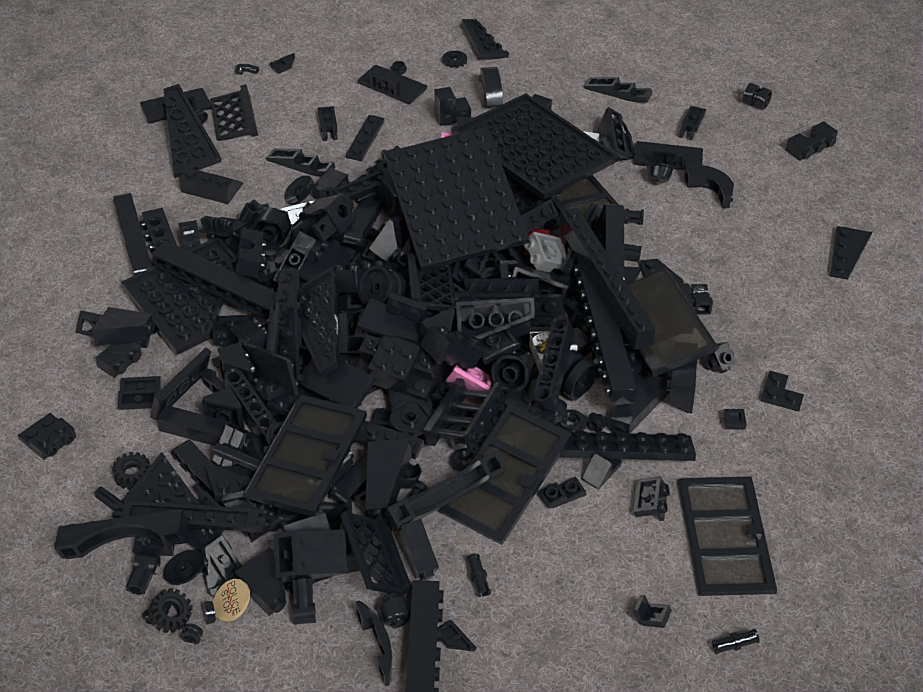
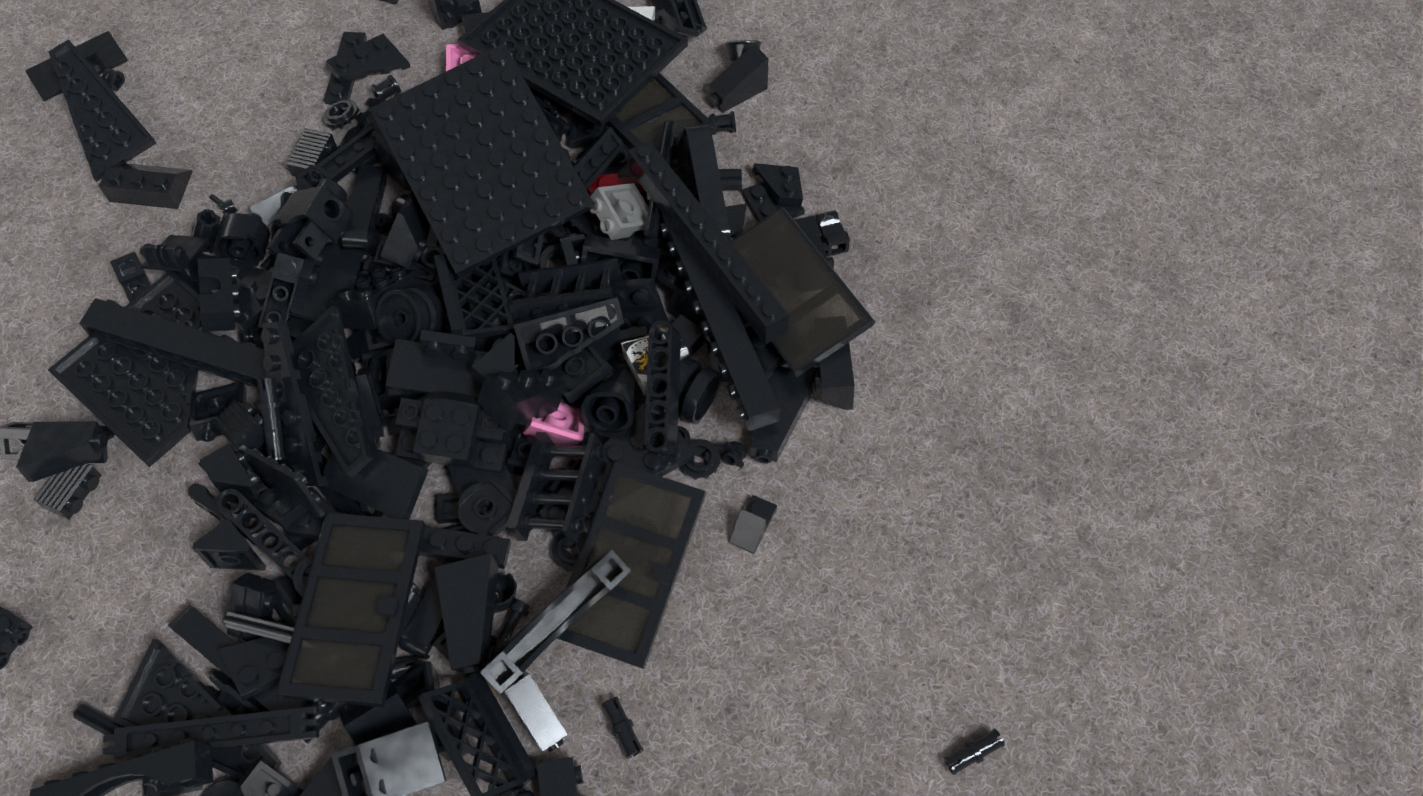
camera: 10 degrees left, 15 degrees up
(122, 464) = (102, 668): black tyre -> none
(132, 233) = (51, 284): black beam -> none
(138, 392) = (108, 539): black slope -> none
(156, 228) = (86, 274): black brick -> none
(180, 383) = (160, 520): black tile -> none
(191, 425) = (189, 577): black brick -> none
(245, 111) = (175, 58): black fence -> none
(298, 161) = (263, 124): black slope -> none
(299, 189) = (269, 169): black dish -> none
(327, 121) = (290, 53): black hinge -> none
(356, 164) = (335, 117): none -> black gear
(384, 132) = (369, 57): none -> black wing
(557, 495) = (710, 571): black slope -> none
(630, 446) = (781, 482): black plate -> none
(651, 497) = (825, 555): black bracket -> none
(651, 614) = (859, 735): black bracket -> none
(653, 191) = (740, 80): none -> black slope
(667, 154) = (750, 21): black bracket -> none
(669, 259) = (781, 182): none -> black wing
(712, 179) = (812, 46): black arch -> none
(721, 359) = (883, 320): black brick -> none
(726, 536) = (931, 590): door -> none
(734, 419) = (909, 408): black plate -> none
(777, 395) = (954, 358): black plate -> none
(847, 250) = (1002, 120): black wing -> none

